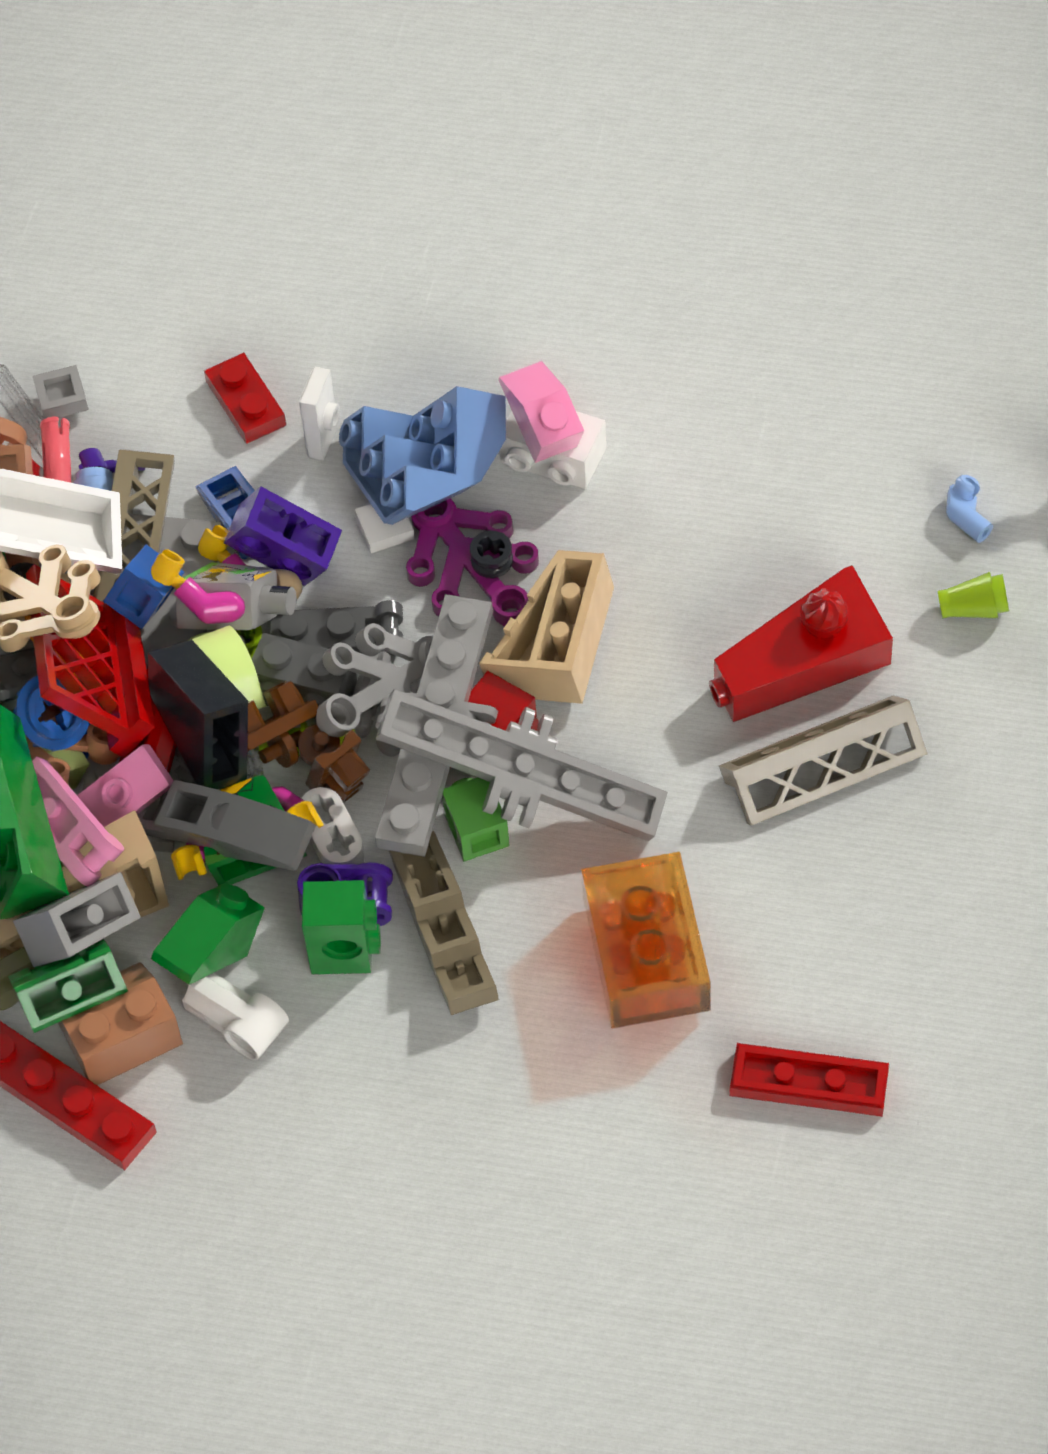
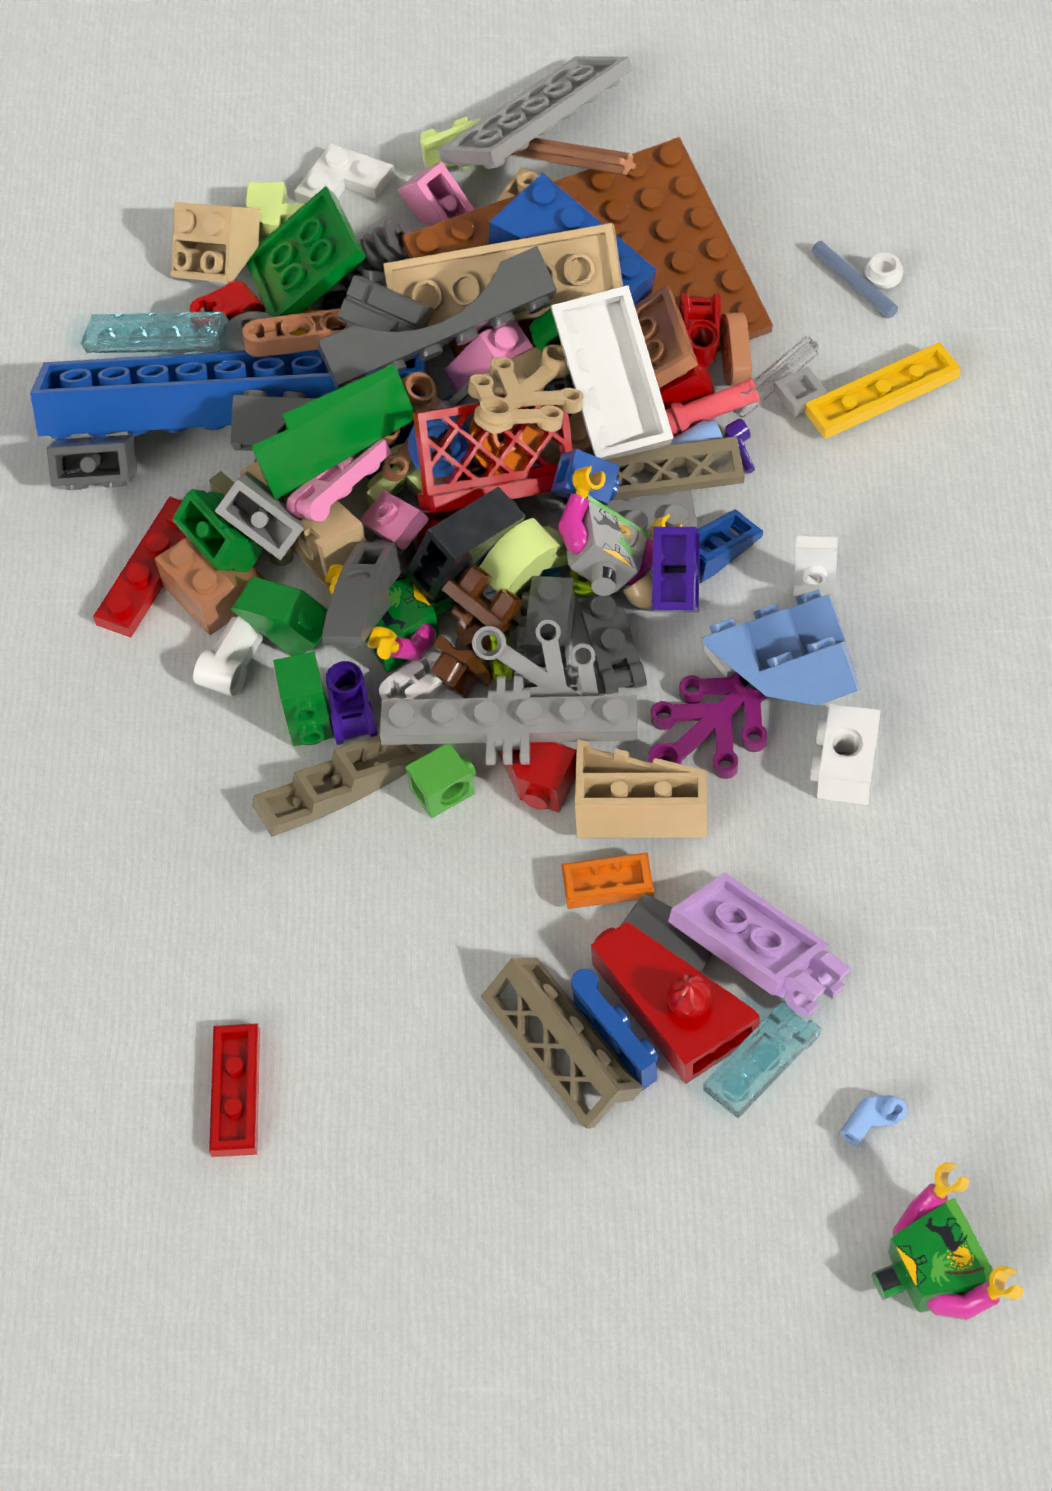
camera: 80 degrees right, 0 degrees up
(88, 321) = (882, 390): none -> yellow plate
(245, 398) = (842, 516): red plate -> none
(496, 543) = (710, 744): black bush -> none
(521, 766) = (472, 791): light grey hinge -> none
(542, 411) = (844, 718): bright pink slope -> none
(643, 683) = (607, 880): none -> orange plate
(646, 940) = (334, 927): clear orange brick -> none
(717, 635) = (652, 918): none -> dark grey slope
(758, 556) = (761, 943): none -> lavender tile
(823, 703) = (614, 1028): none -> blue plate
(894, 591) = (760, 1059): none -> clear light blue plate
(975, 598) = (767, 1142): lime cone -> none

